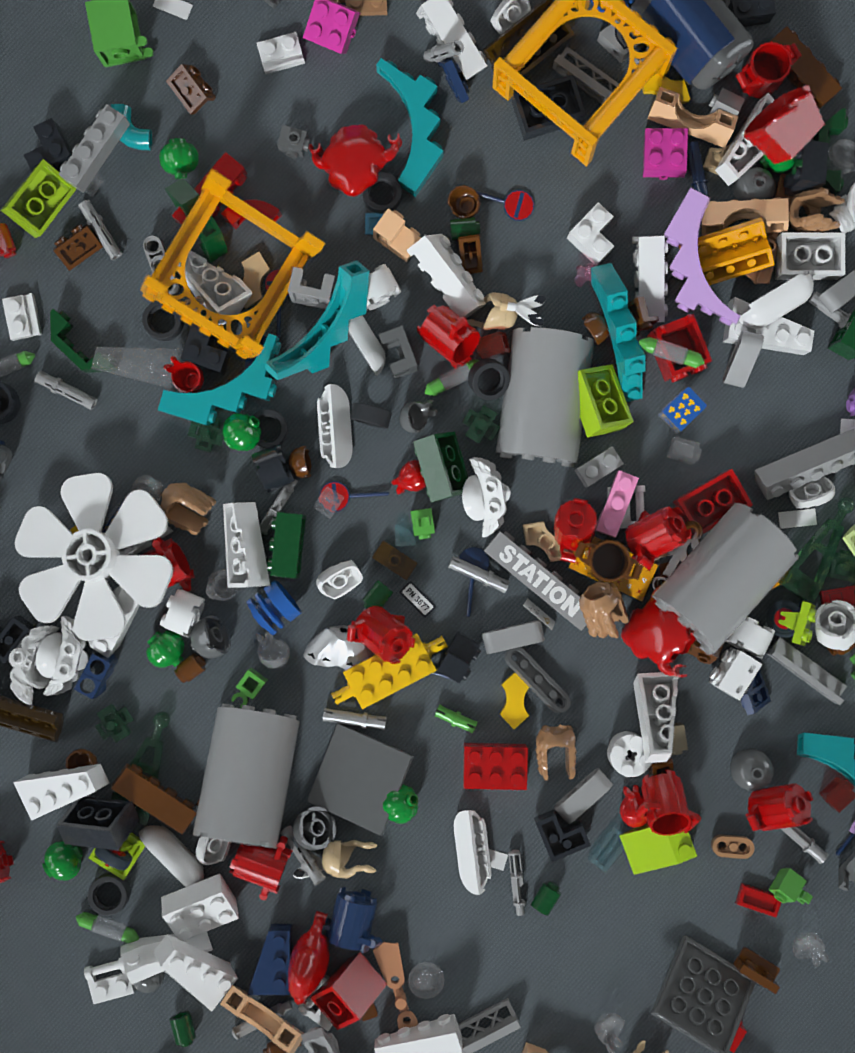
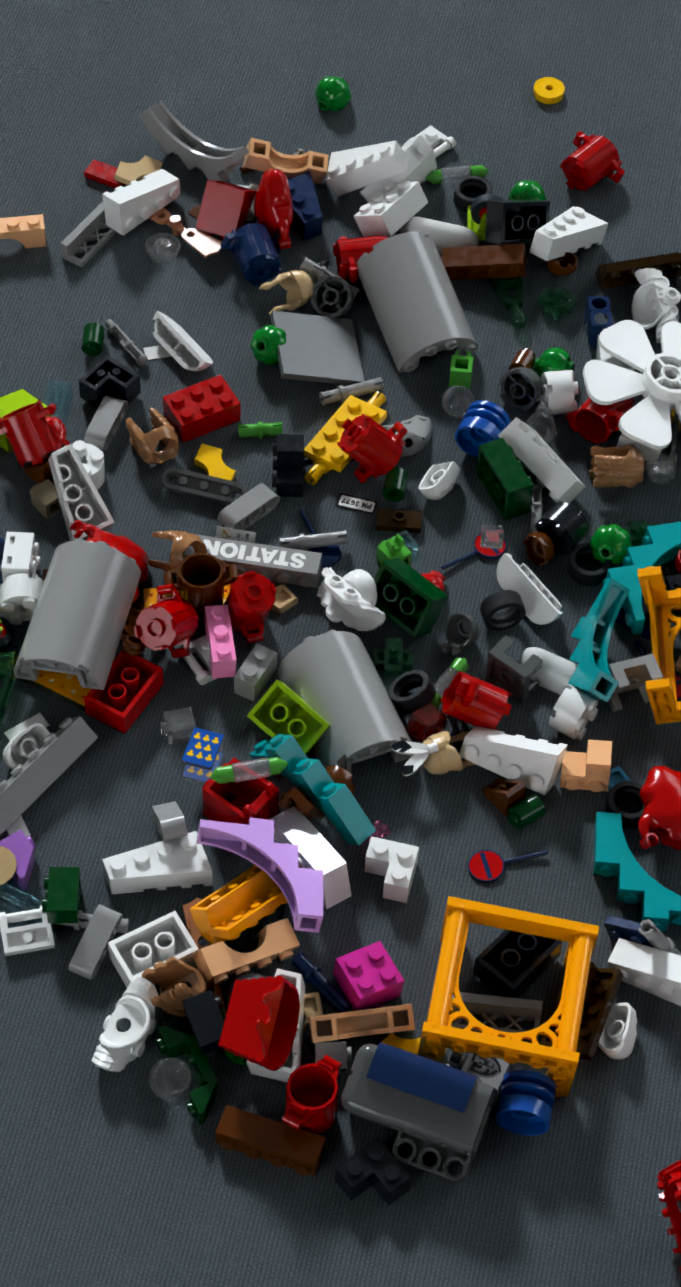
camera: 150 degrees right, 35 degrees down
(61, 658) = (643, 311): white piece -> none
(183, 1028) = (346, 137): dark green brick -> none
(464, 201) = (542, 833): reddish brown hair -> none
(778, 302) = (164, 880): white brick -> none

